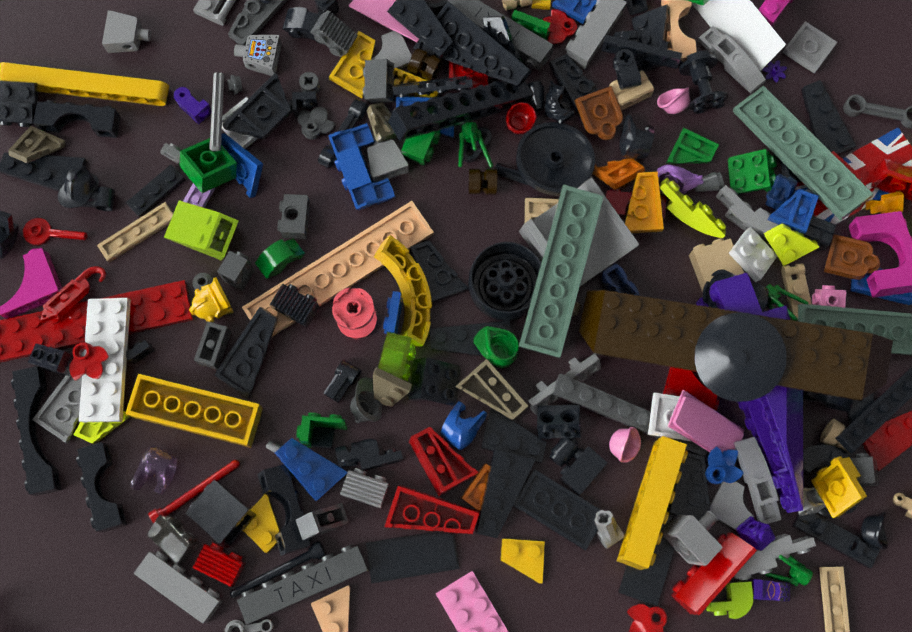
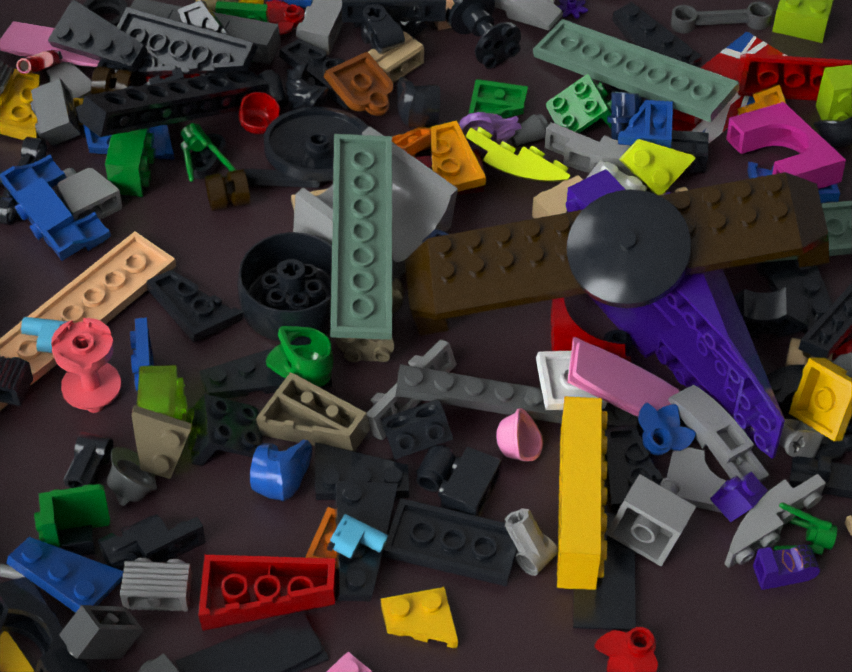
camera: 15 degrees left, 25 degrees down
(338, 275) = (43, 329): none -> medium azure piece
(376, 29) = (39, 61): none -> red piece
(379, 117) = (73, 156): dark tan wing -> none
(412, 286) = (169, 330): yellow brick -> none
(440, 461) = (260, 520): red wedge -> none
(493, 497) = (353, 532): none -> medium azure piece
(674, 100) = (457, 57): bright pink helmet -> none
(707, 581) = (696, 561): red slope -> none
(738, 602) = (744, 589): lime brick -> none
(851, 258) = (741, 162): dark orange plate -> none

